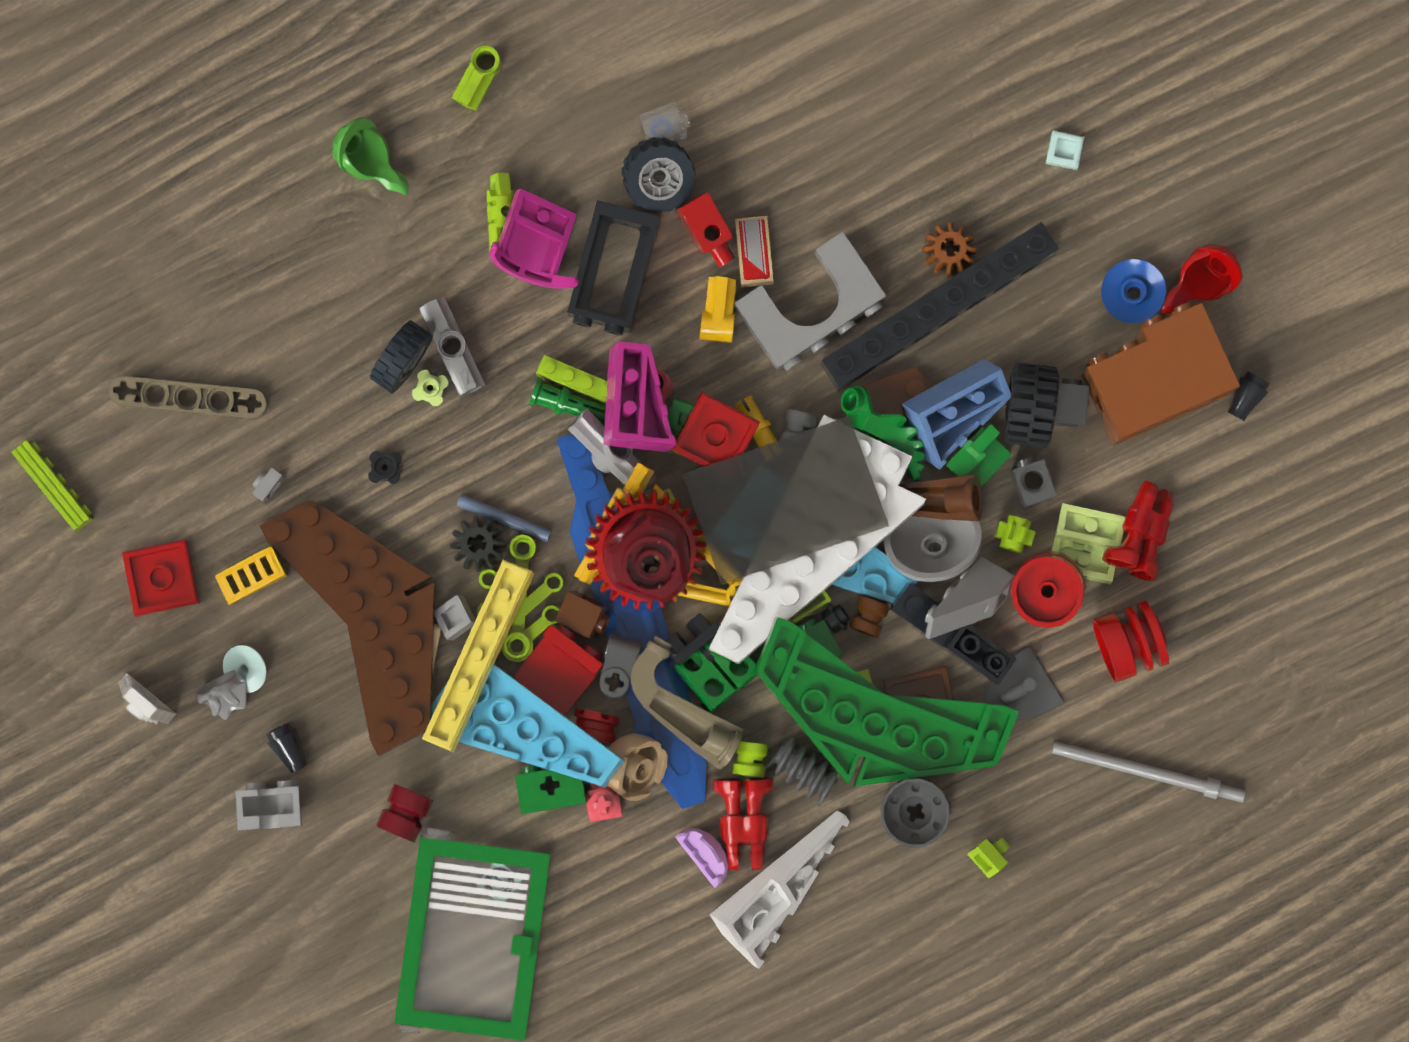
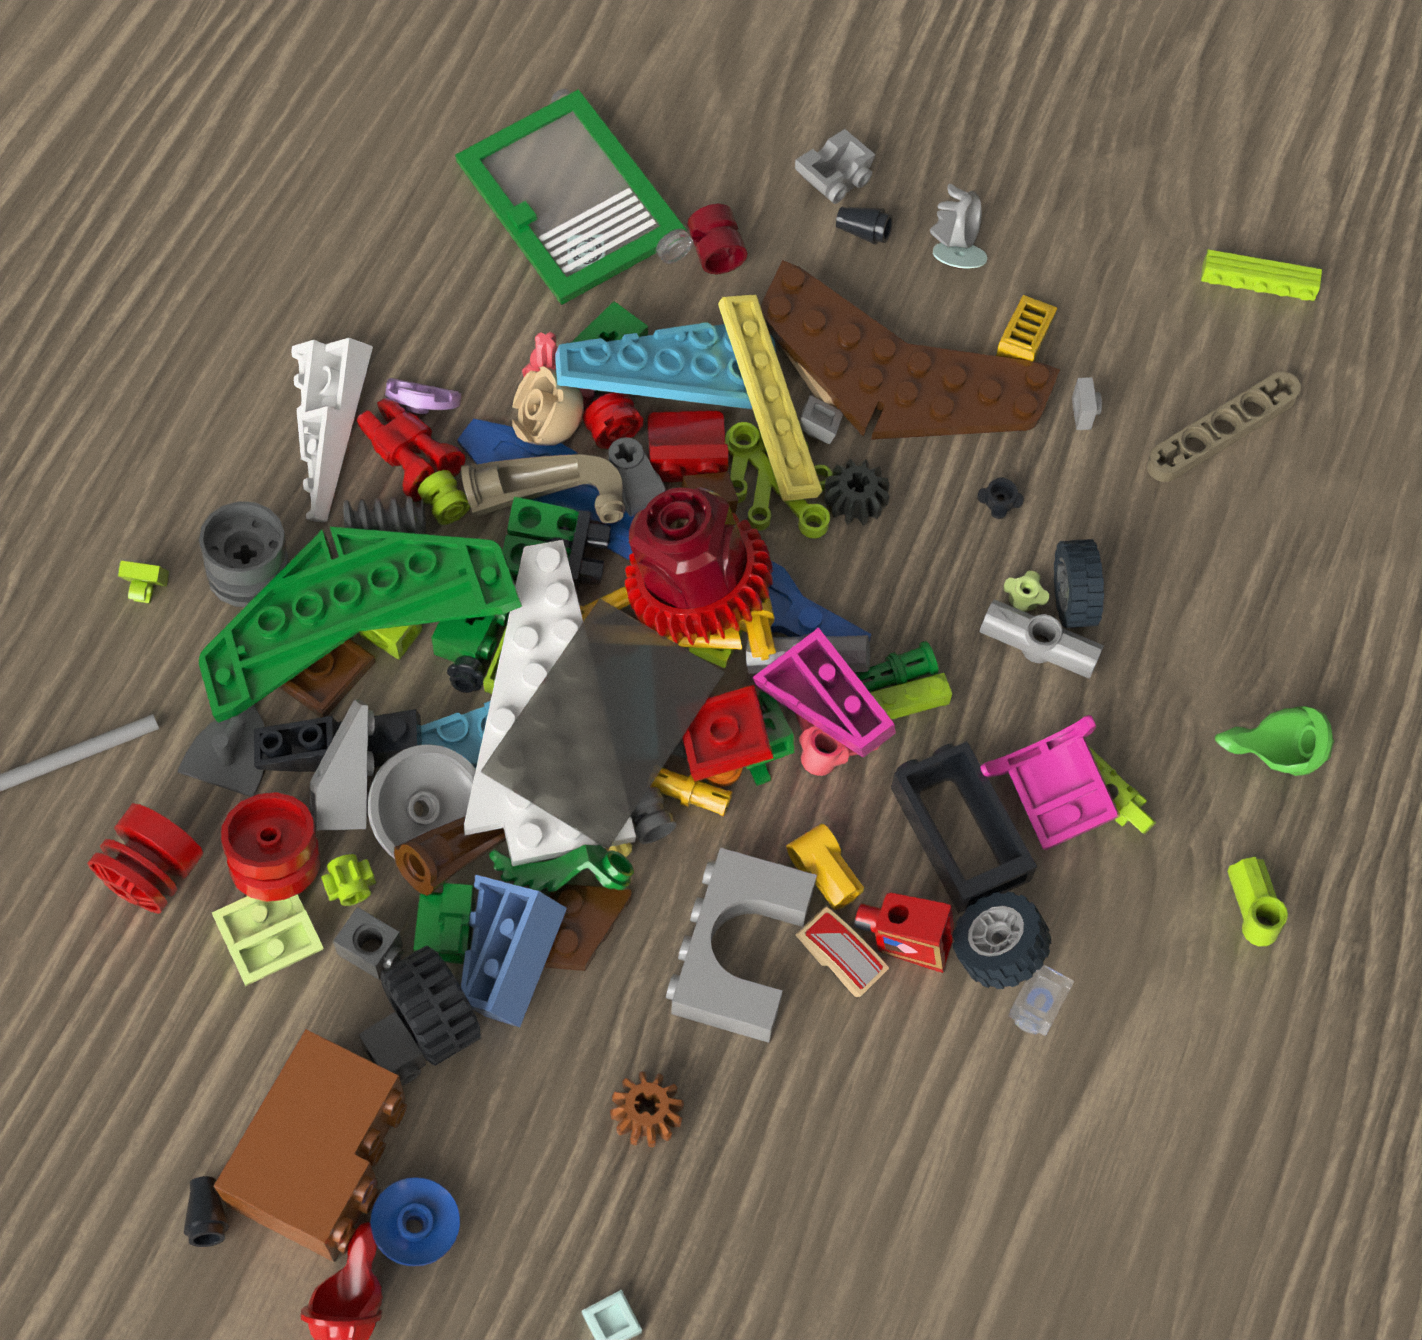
camera: 135 degrees right, 20 degrees down
(143, 702) = (1017, 144): white wing -> none
(160, 578) = (1099, 275): red tile -> none
(504, 518) = (854, 536): sand blue bar -> none
(869, 616) = (433, 696): reddish brown wheel -> none
(939, 306) = (606, 1045): black brick -> none
(1145, 523) = (221, 995): red piece -> none

